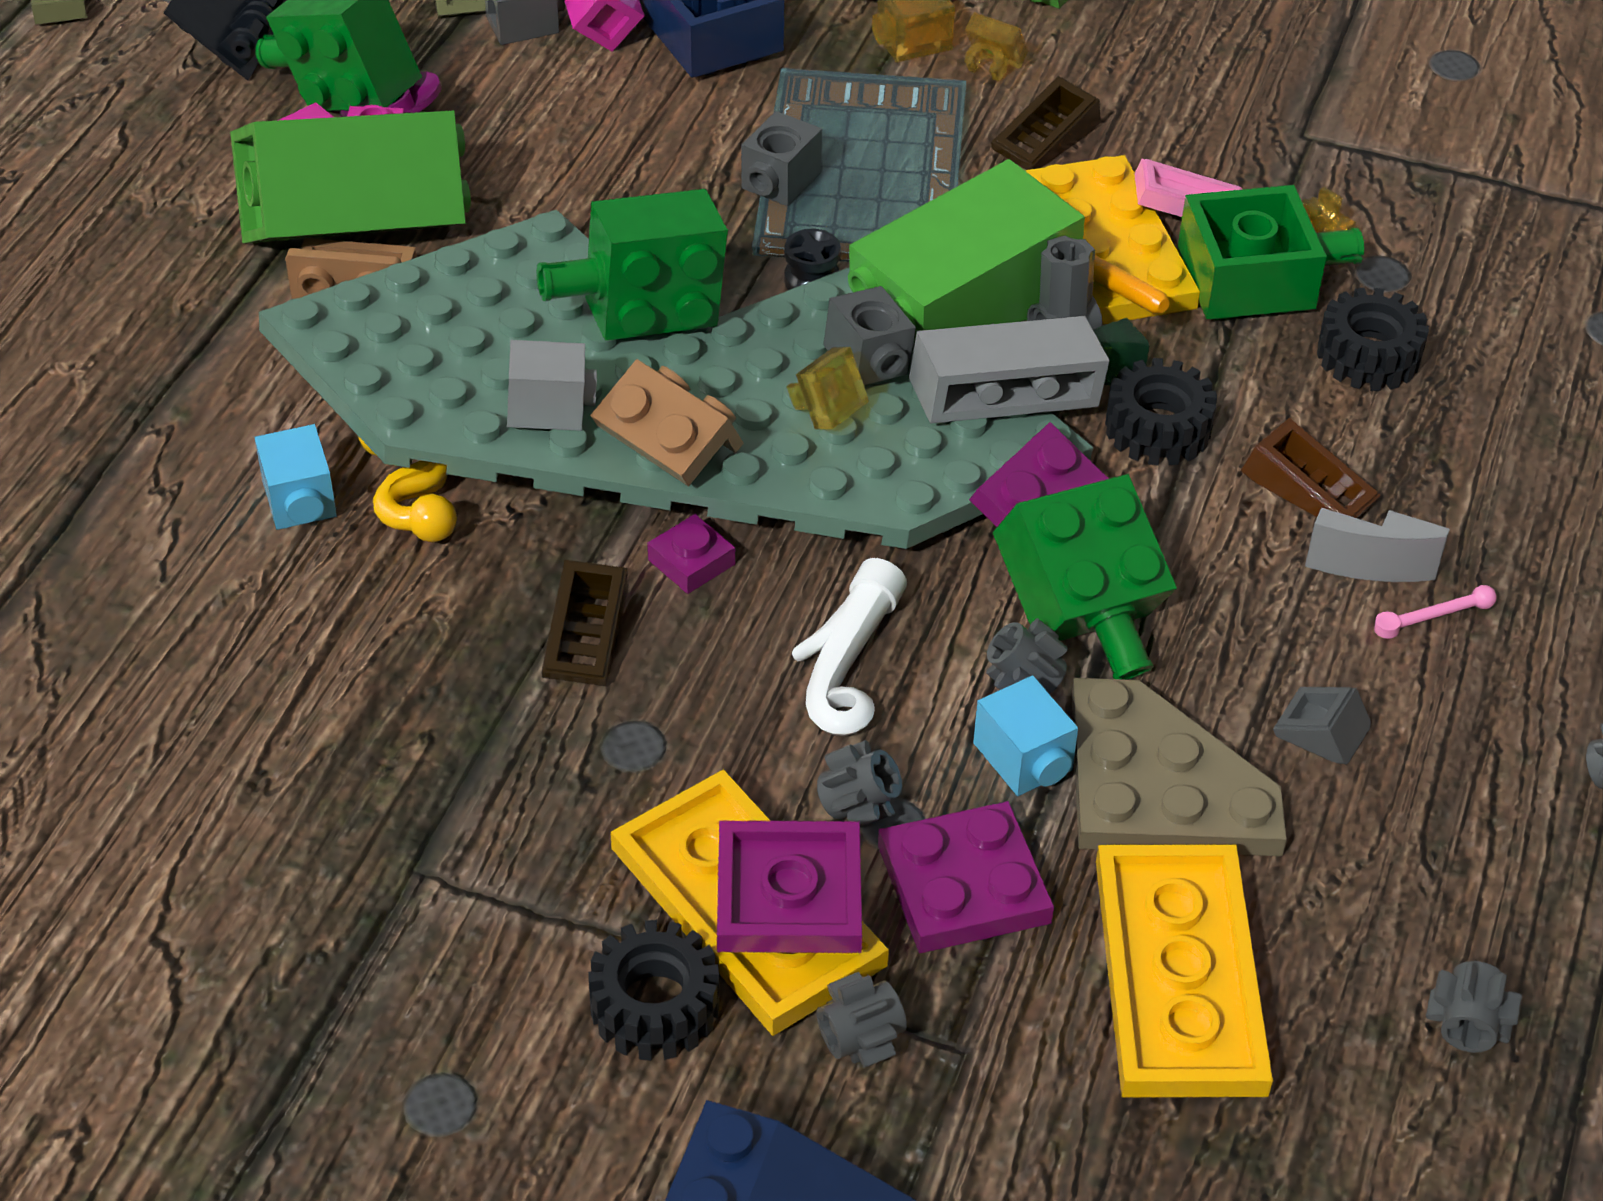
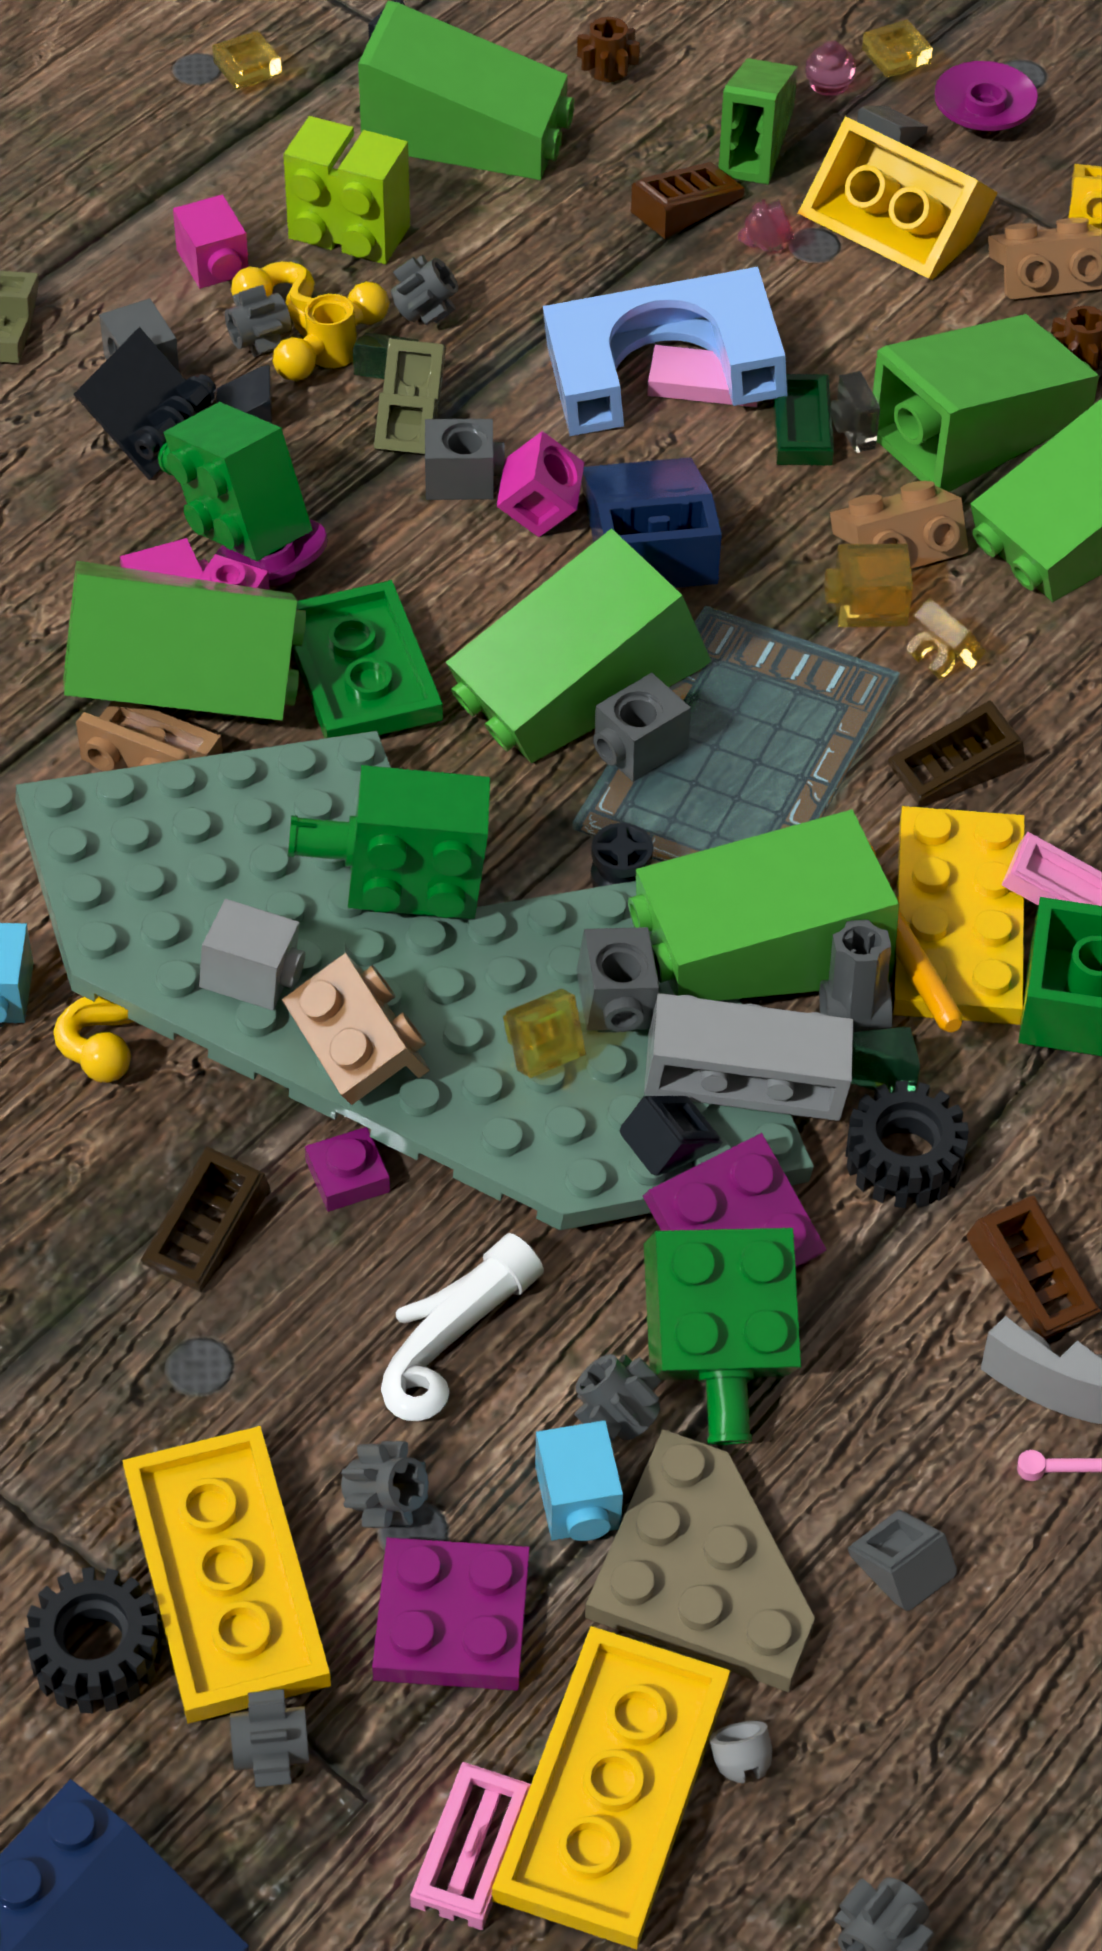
camera: 20 degrees right, 5 degrees up
(520, 169) = (364, 663): none -> green plate
(699, 106) = (574, 646): none -> bright green slope
(789, 887) = (255, 1578): magenta plate -> none
(968, 444) = (668, 1133): none -> black slope
(1083, 1107) = (451, 1902): none -> bright pink tile
(1276, 908) = (742, 1748): none -> light grey hinge

